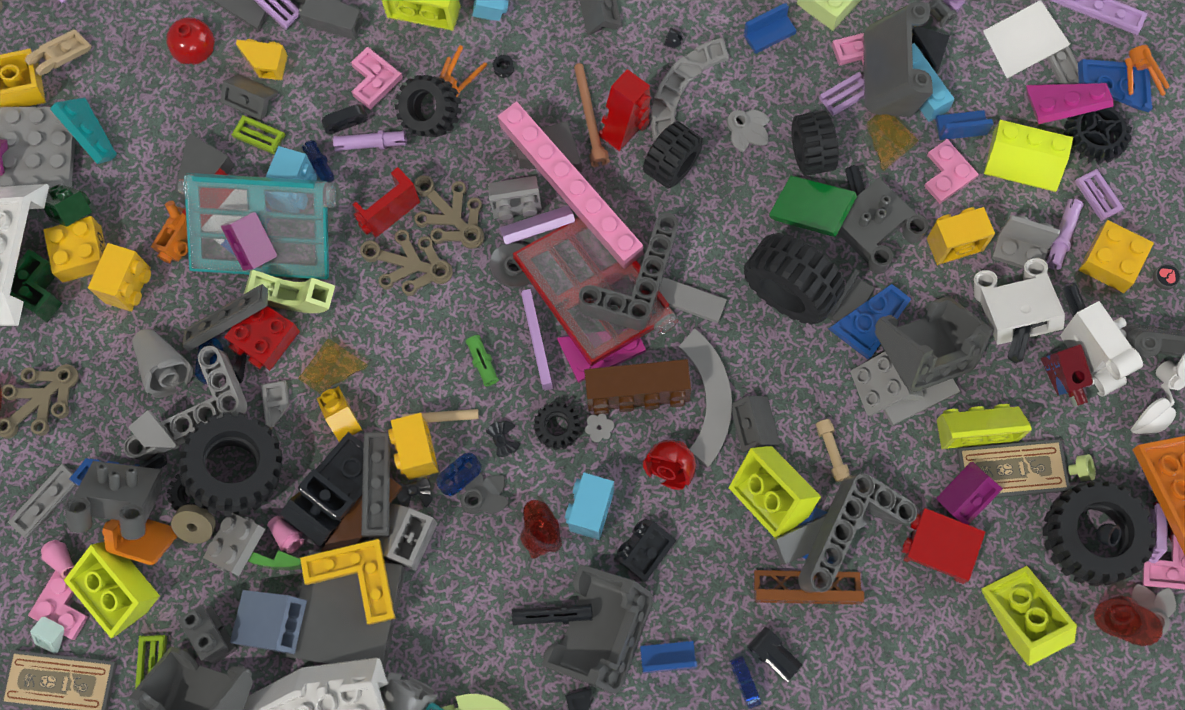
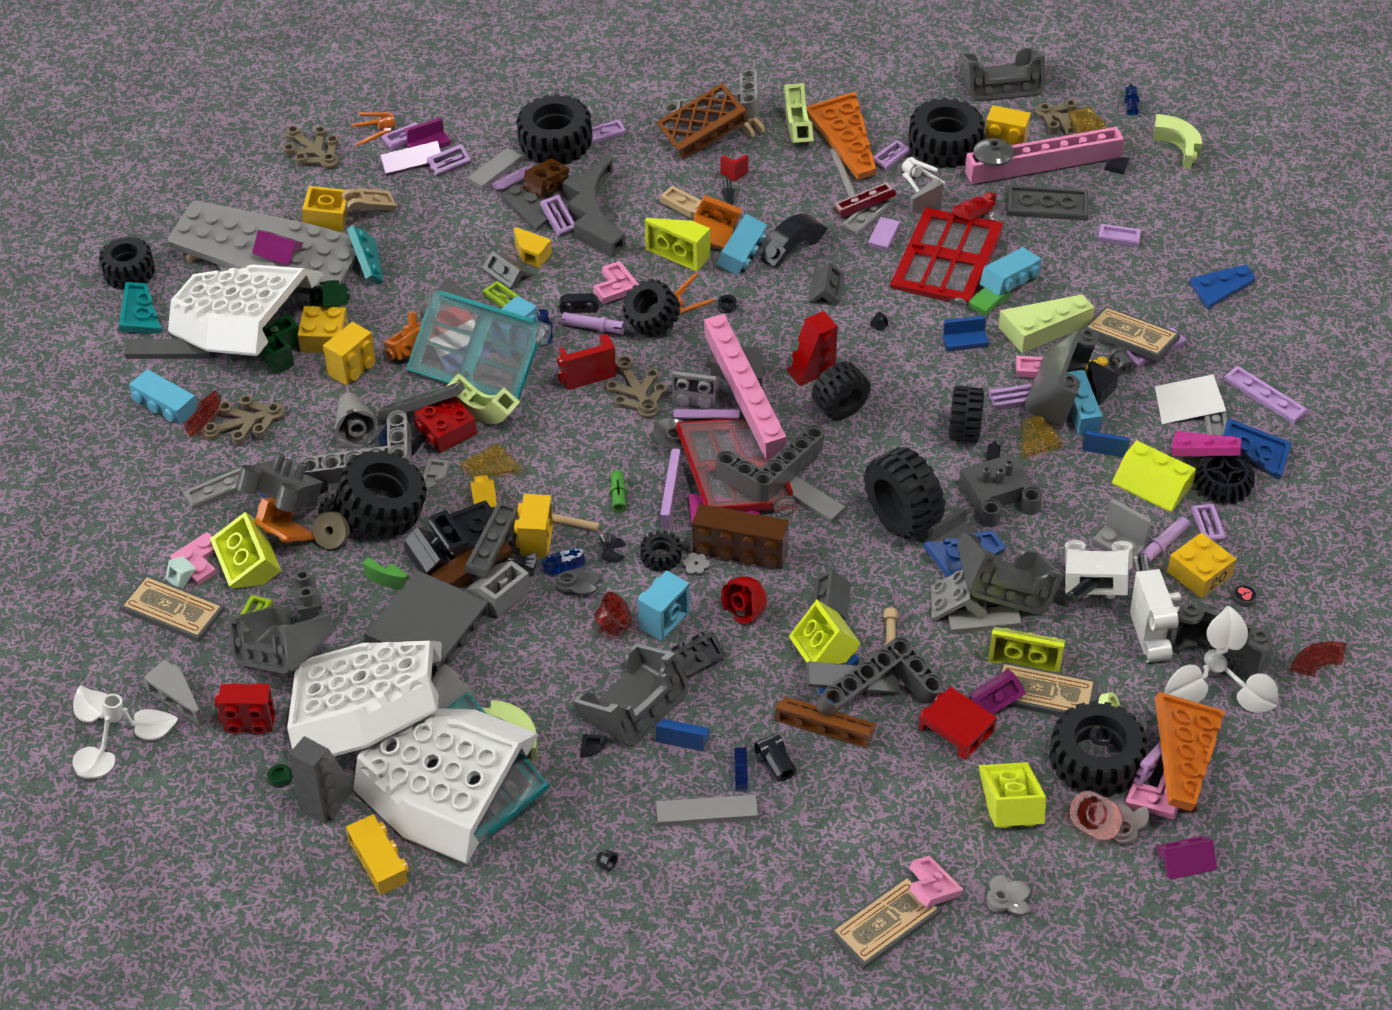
camera: 15 degrees right, 25 degrees down
(57, 556) = (211, 521): bright pink cone -> none
(152, 432) = (327, 455): light grey tile -> none
(190, 41) = (477, 221): red cylinder -> none
(234, 543) = (357, 551): light grey plate -> none
(249, 241) = (464, 353): panel -> none
(268, 621) = (362, 606): sand blue brick -> none
(286, 536) = (402, 559): bright pink cone -> none
(362, 559) = (456, 583): yellow plate -> none
(409, 264) = (608, 424): dark tan plant -> none
(584, 613) = (605, 677): black pin -> none
(598, 152) = (780, 381): nougat piece -> none
(678, 79) = (881, 346): light grey tile -> none
(717, 397) = (806, 572): light grey tile -> none
(750, 131) = (919, 398): light grey plate -> none
(813, 206) = (951, 459): green tile -> none
(955, 172) = (1084, 473): bright pink plate -> none
(960, 235) = (1066, 510): yellow brick -> none
(1069, 373) = (1121, 629): dark red torso -> none
(1141, 59) = (1282, 433): orange plant -> none

